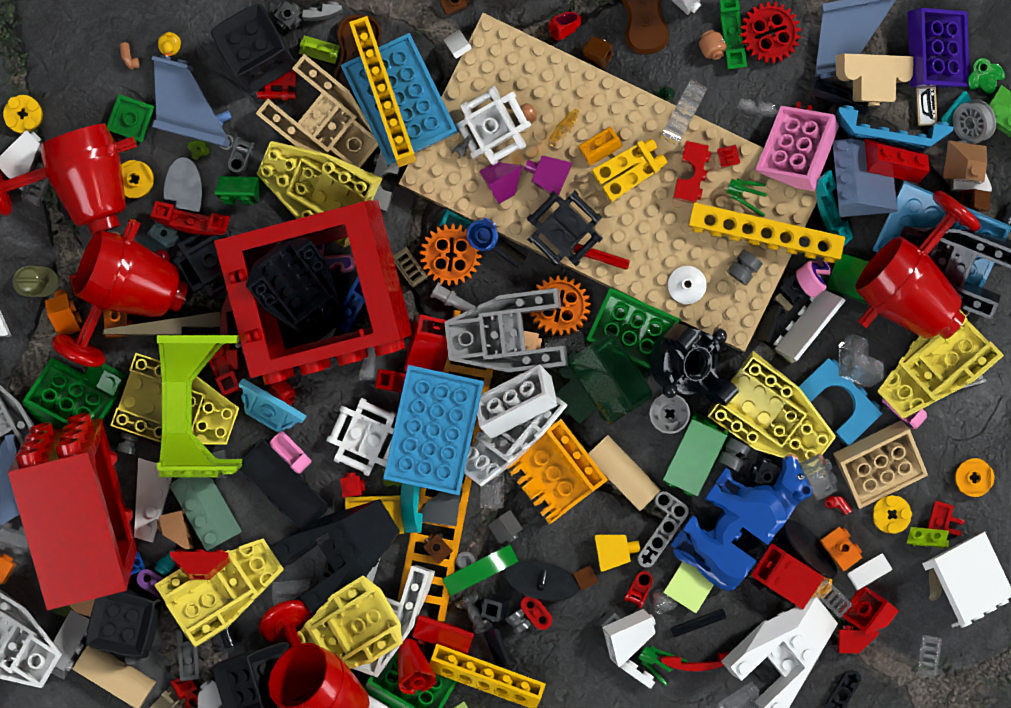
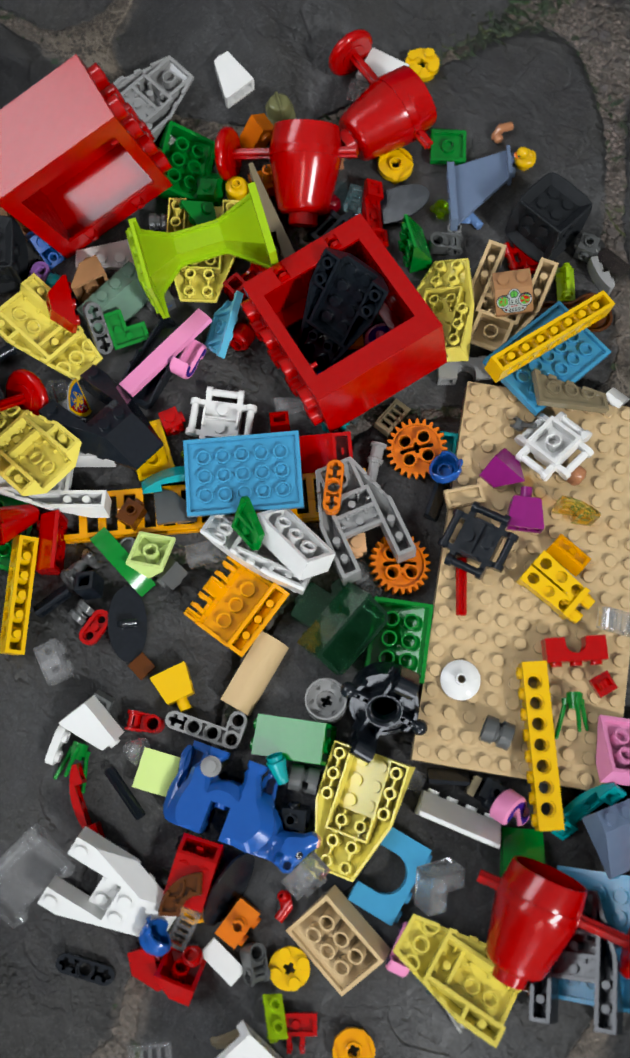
camera: 75 degrees right, 10 degrees down
(122, 352) = (236, 188): none -> yellow head
(141, 397) = (198, 211): none -> green wing
(238, 529) = (97, 313): none -> dark grey beam
(245, 510) = (124, 335): none -> green plate
(279, 472) = (163, 353): none -> bright pink tile
(307, 575) = (76, 401): none -> shield
(324, 111) = (512, 292): none -> medium nougat slope
(445, 100) = (566, 395): none -> dark tan wing
(480, 344) = (329, 479): none -> orange beam
(482, 540) = (150, 553): none -> yellowish green slope
(487, 439) = (247, 524): none -> green wing
(515, 225) = (464, 496): none -> tan tile
(558, 659) = (54, 662): none -> clear brick
(701, 533) = (211, 766): none -> light grey plate
(717, 474) = (277, 765): none -> teal cone
(802, 591) = (179, 893): none -> reddish brown tile
(833, 624) = (154, 937): none -> blue hat
(858, 596) = (192, 956): none -> red plate
(879, 543) = (255, 965): none -> dark grey piece

